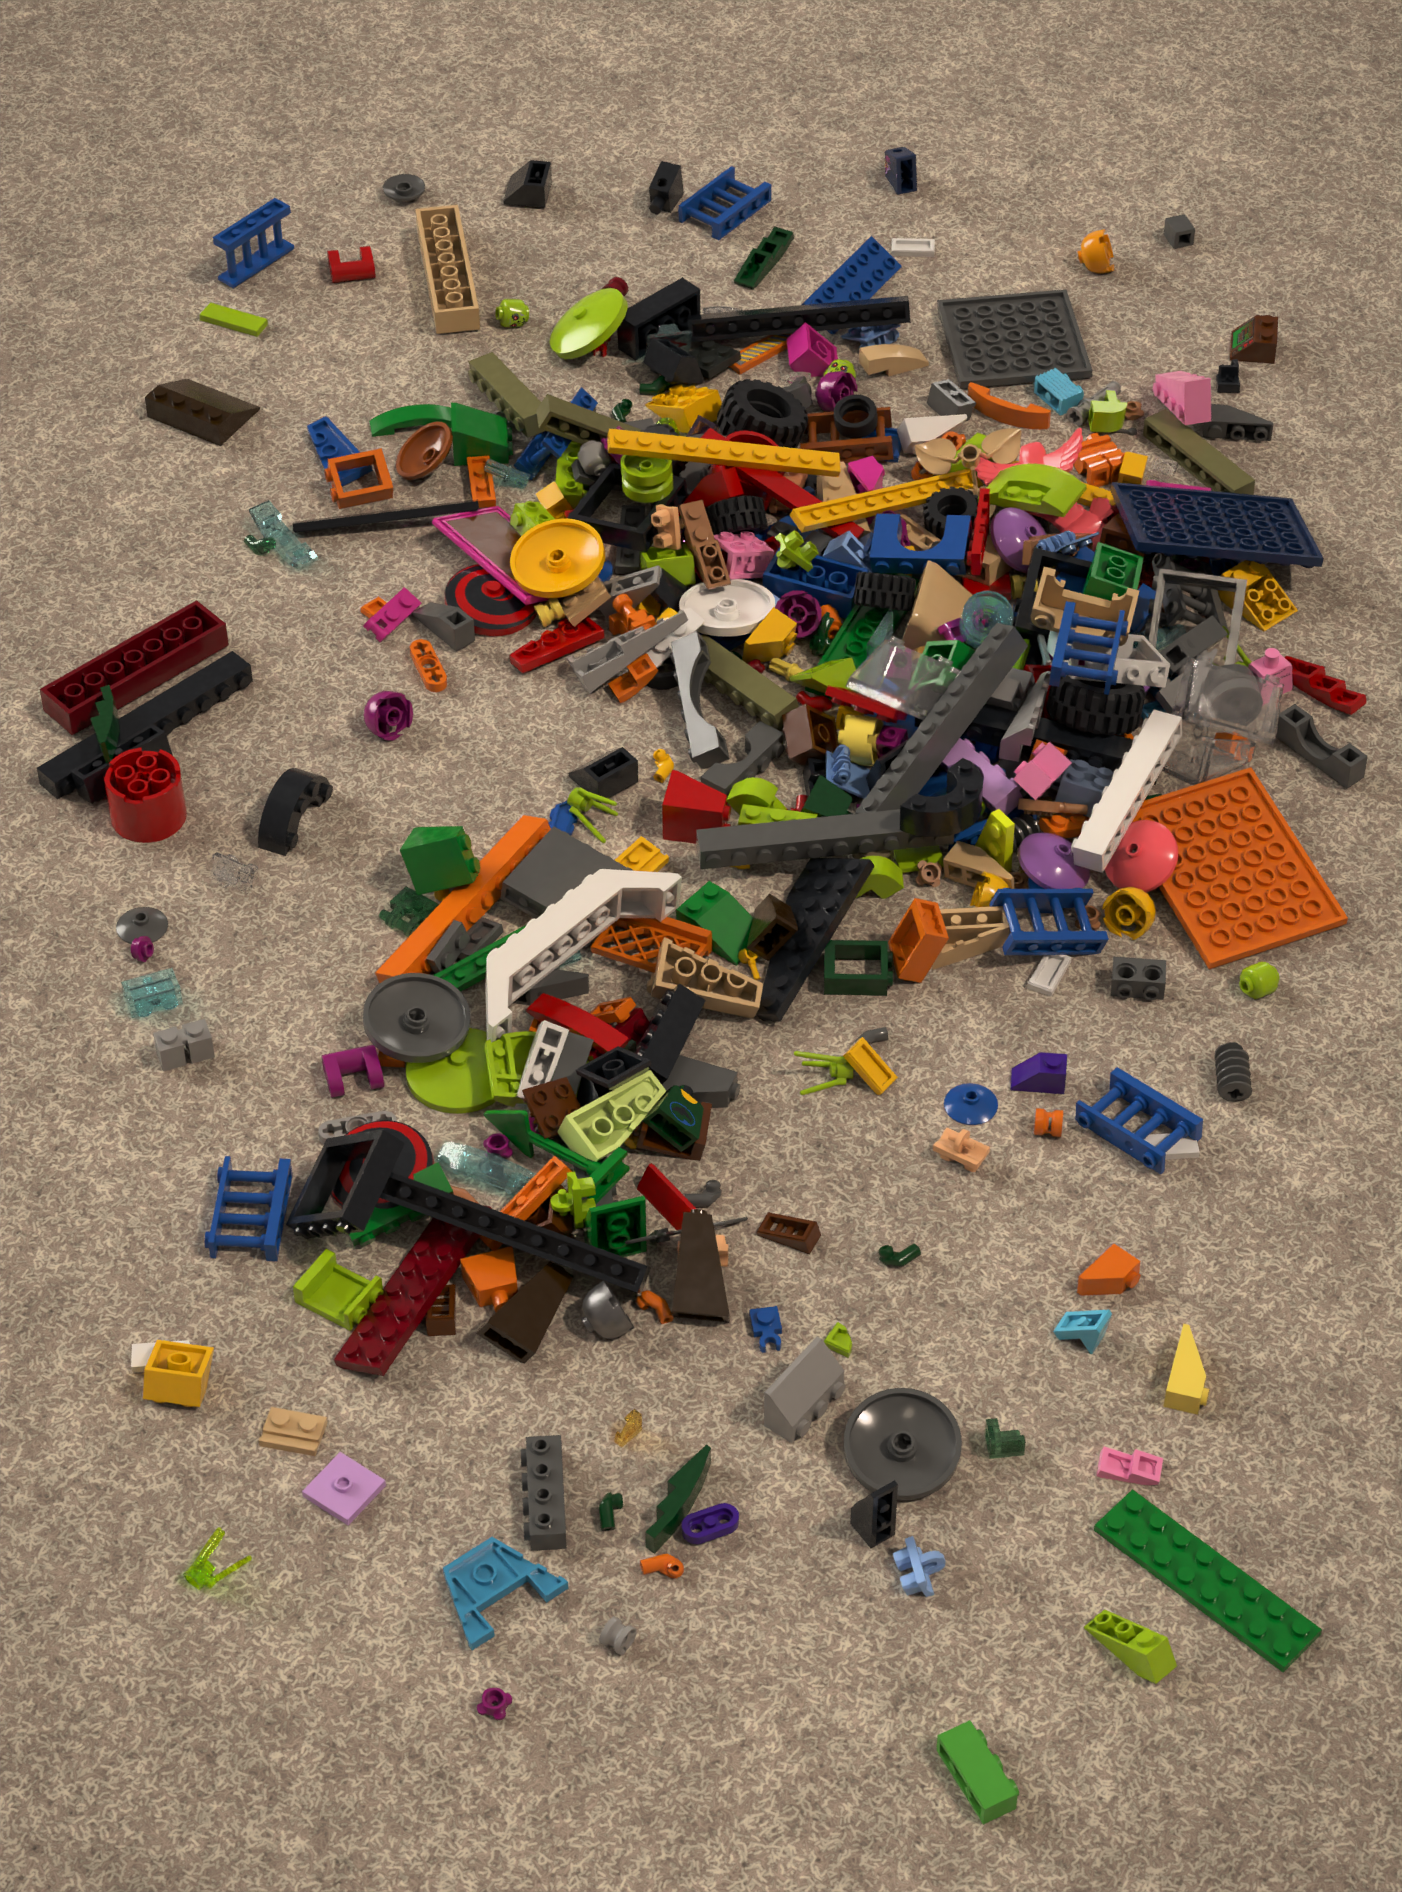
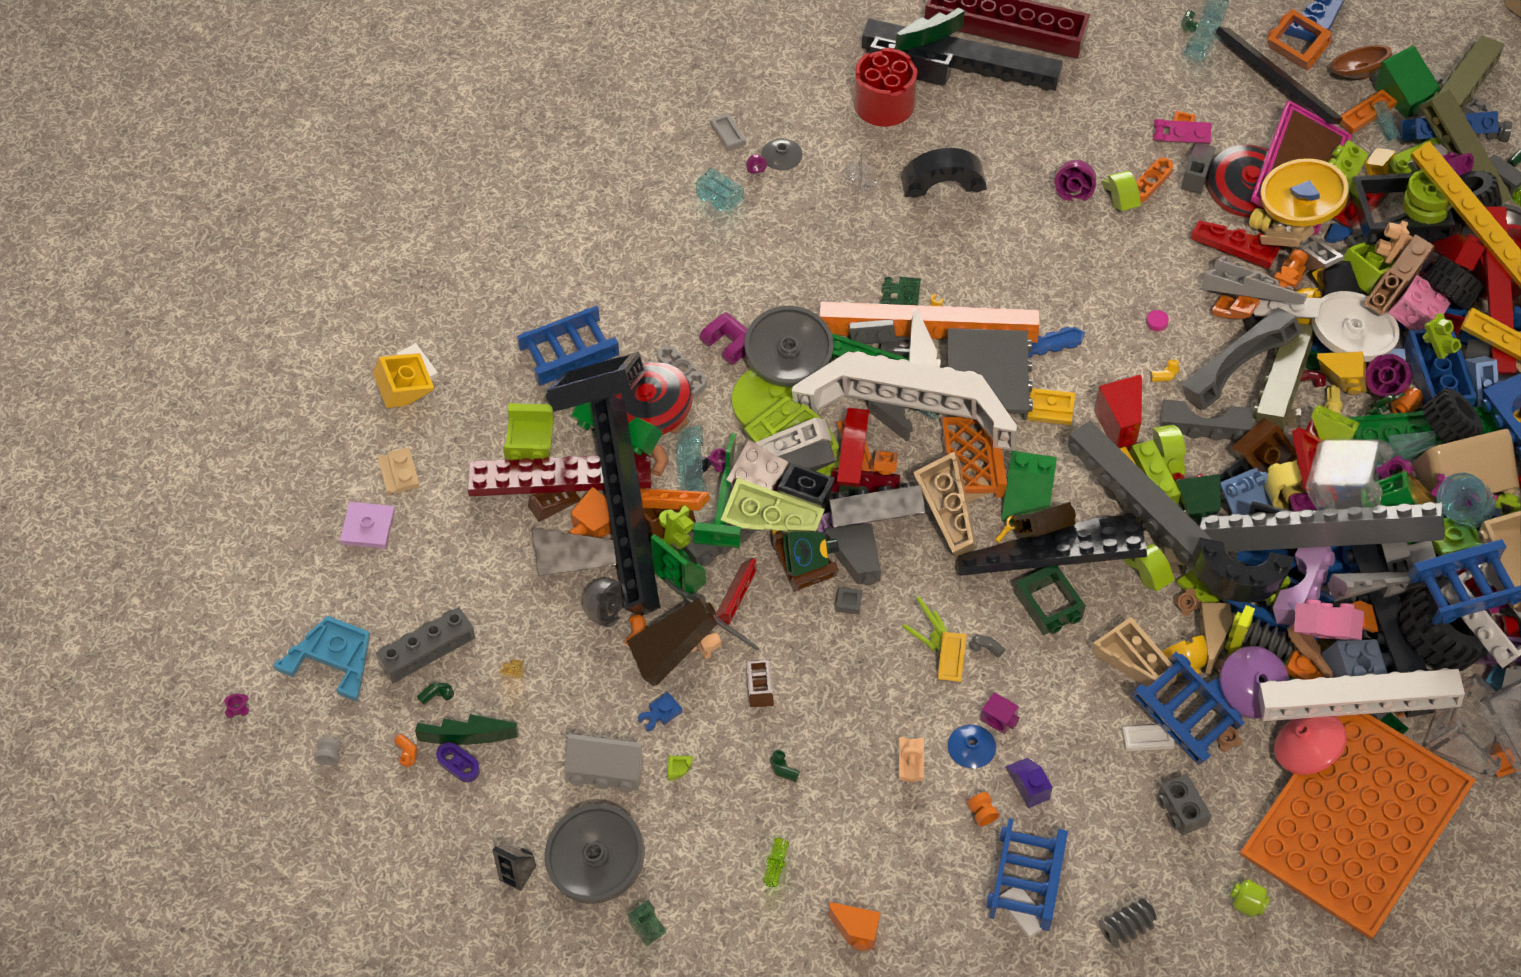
camera: 60 degrees right, 10 degrees up
(73, 955) = (728, 132): none -> light grey tile
(170, 1044) = (691, 235): light grey piece -> none
(201, 1570) = (252, 480): clear neon green plant -> none
(408, 417) = (1395, 35): green slope -> none
(430, 685) = (1123, 190): none -> lime brick
(439, 858) = (943, 278): green slope -> none
(497, 913) = (921, 345): none -> white slope
(563, 552) = (1305, 190): none -> tile
(582, 800) = (1084, 340): lime plant -> none
(597, 743) = (1157, 320): none -> dark pink tile
(607, 773) = (1123, 341): black slope -> none
(708, 1196) = (758, 613): dark grey arm -> none
(746, 1118) = (849, 600): none -> dark grey plate
(915, 956) = (1095, 624): orange window -> none
(922, 1565) = (498, 913): light blue hips -> none
(954, 1062) = (1000, 713): none -> magenta brick
(1001, 1306) = (775, 862): none -> clear neon green axle
(1084, 1325) = (787, 931): medium azure slope -> none
(1128, 907) = (1251, 760): yellow cylinder -> none

